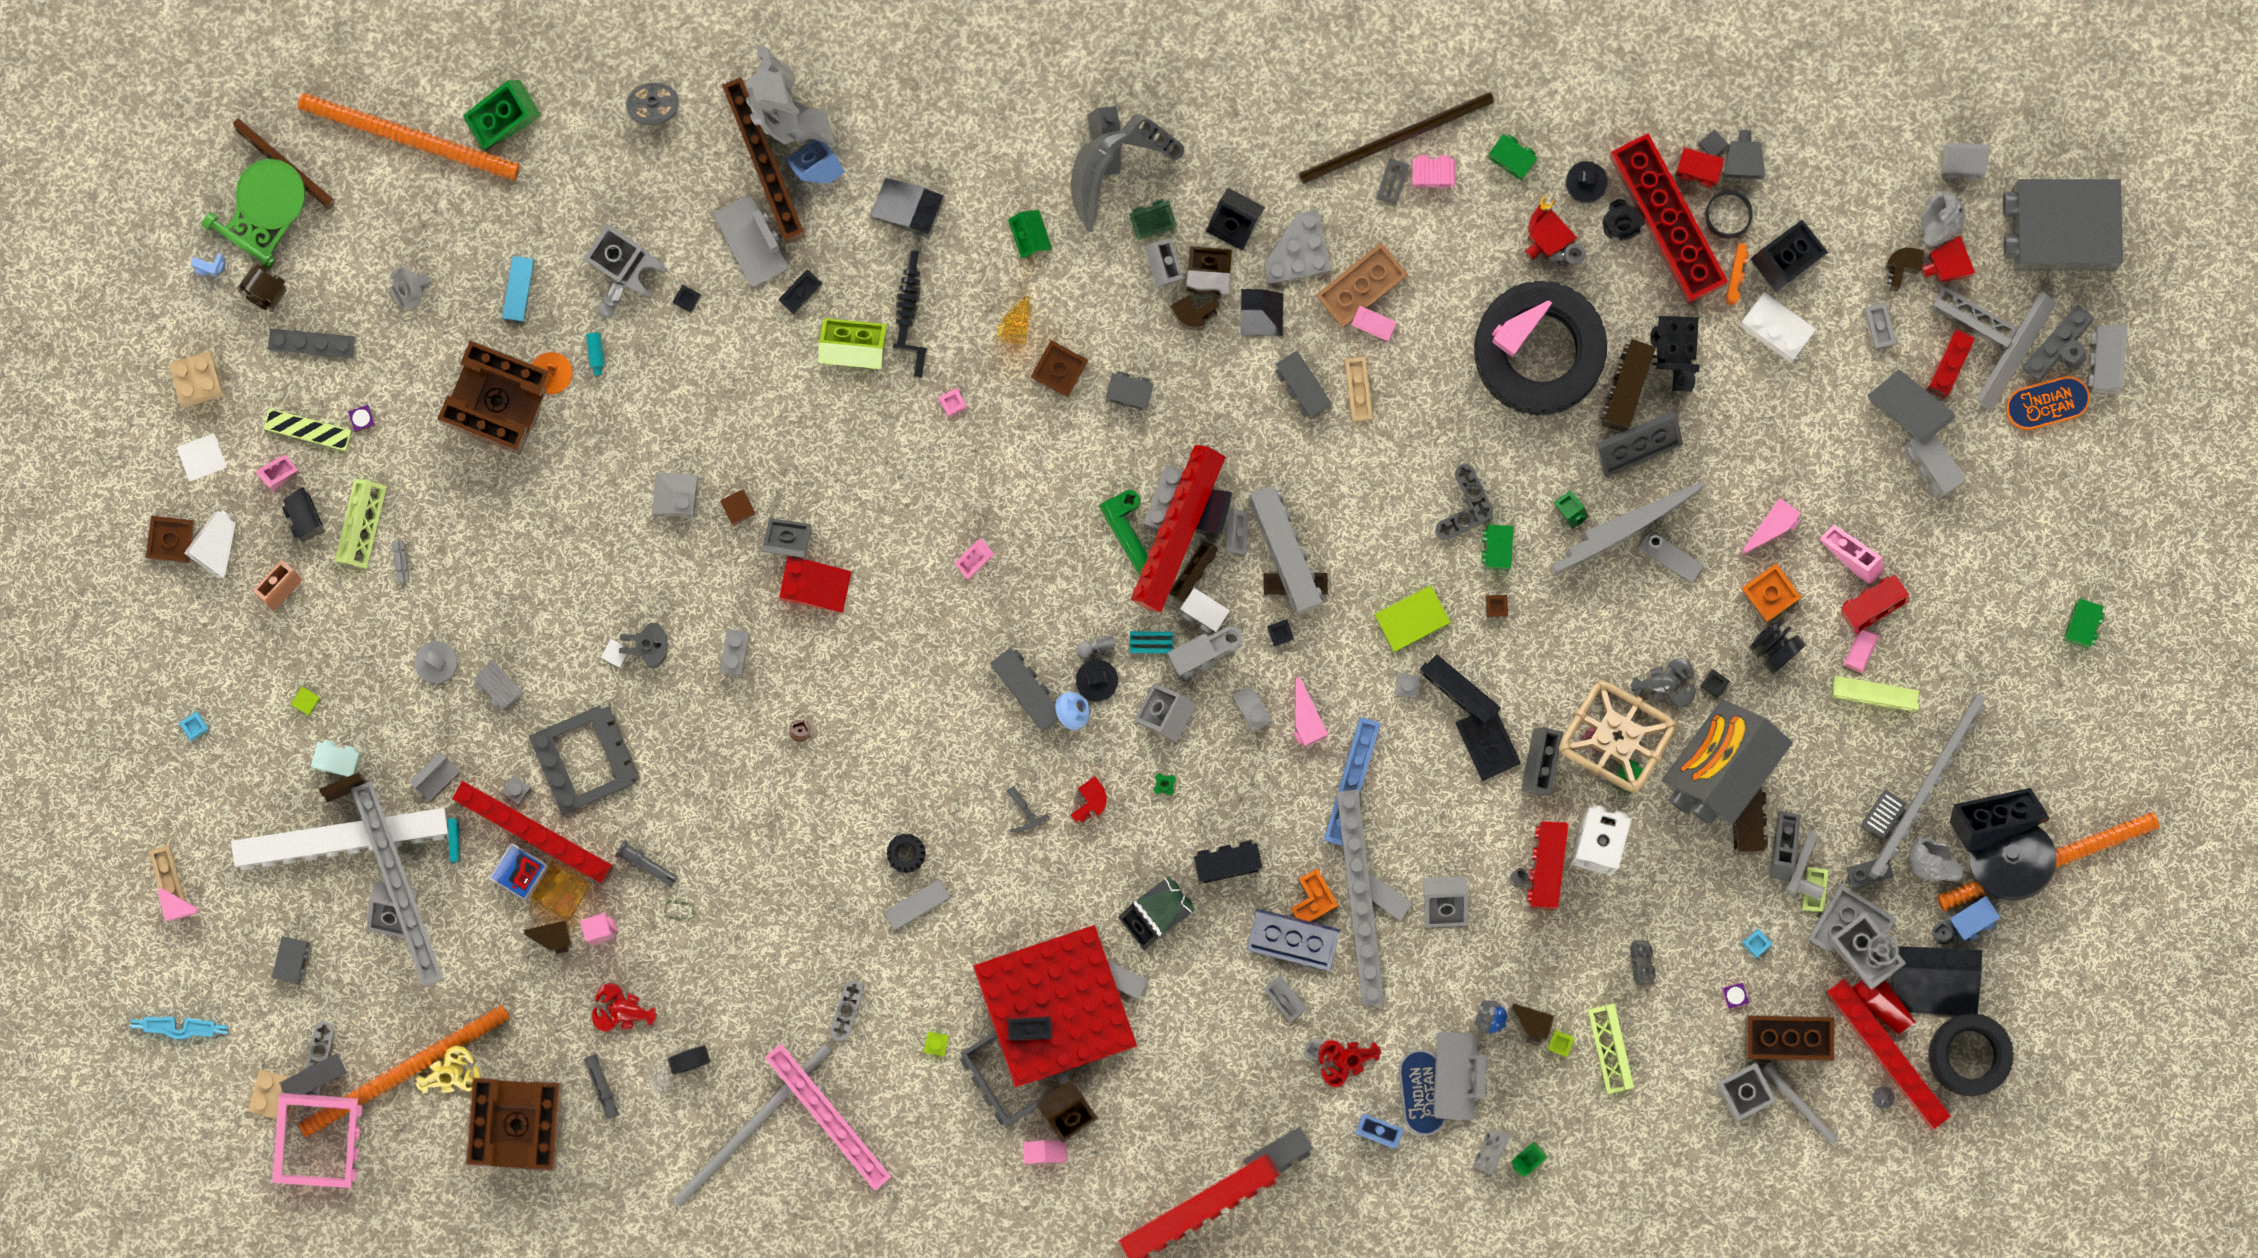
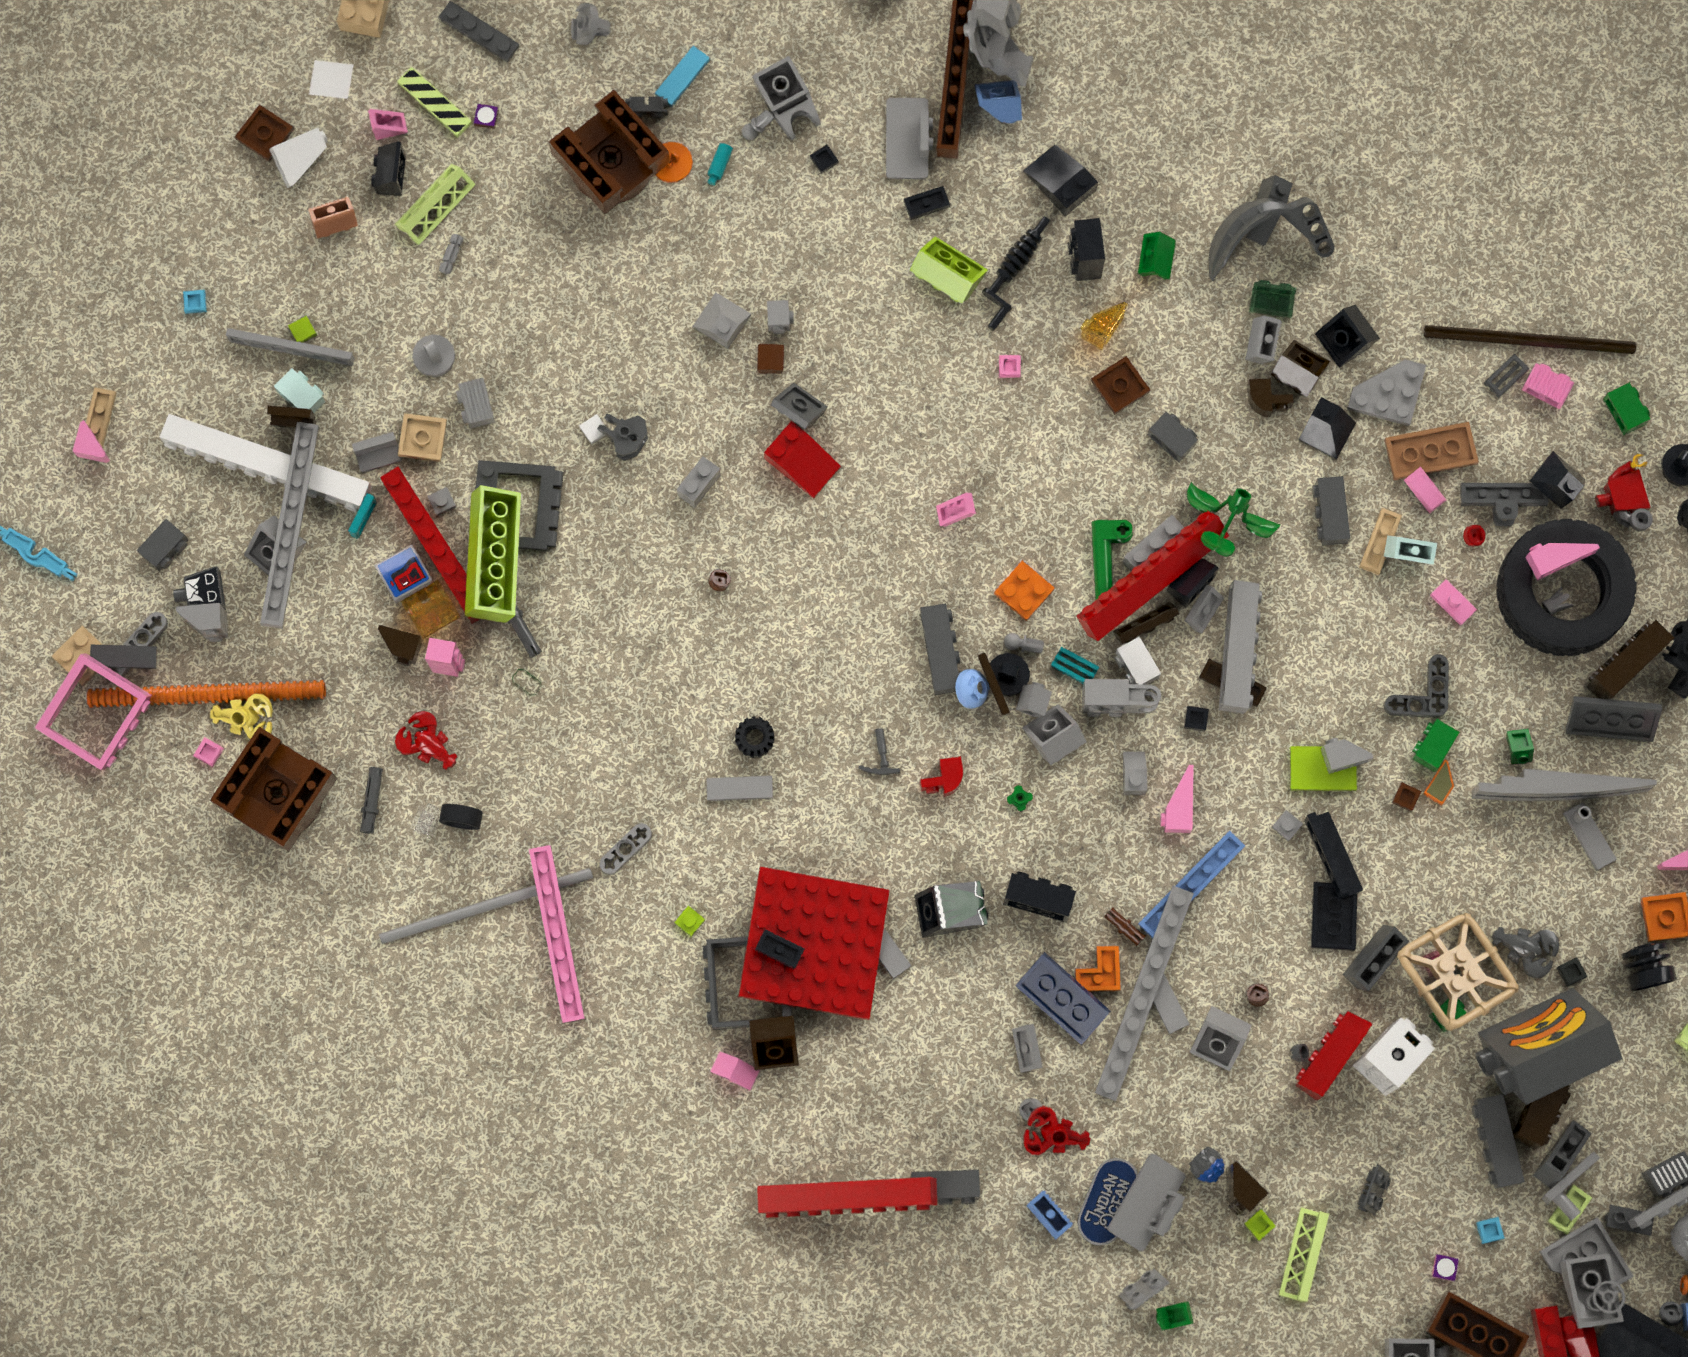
camera: 30 degrees right, 5 degrees down
(304, 722) = (290, 347): none -> light grey tile
(349, 982) = (202, 588): none -> torso
(369, 1007) = (206, 619): none -> light grey slope
(434, 1120) = (208, 752): none -> bright pink tile
(467, 741) = (422, 437): none -> tan plate
(510, 332) = (654, 108): none -> dark grey hinge
(591, 815) = (493, 554): none -> lime brick
(725, 465) = (779, 316): none -> light grey brick
(967, 264) = (1086, 249): none -> black brick
(1071, 598) = (1024, 590): none -> orange plate
(1090, 697) = (998, 695): none -> dark brown tile
(1131, 691) = (1034, 700): none -> light grey brick
(1189, 436) = (1237, 504): none -> green plant
(1313, 848) = (1124, 926): none -> reddish brown pin
(1389, 385) = (1410, 549): none -> light aqua brick
(1423, 599) = (1343, 755): none -> light grey slope
(1437, 341) = (1474, 535): none -> red tile
(1446, 294) = (1503, 497): none -> dark grey plate
(1449, 411) = (1453, 602): none -> bright pink tile
(1458, 847) = (1257, 995): none -> reddish brown tile
(1485, 254) = (1558, 480): none -> black slope
(1520, 579) = (1441, 784): none -> olive tile
(1538, 365) = (1553, 604): none -> light grey piece
(1726, 864) = (1498, 1141): none -> dark grey brick

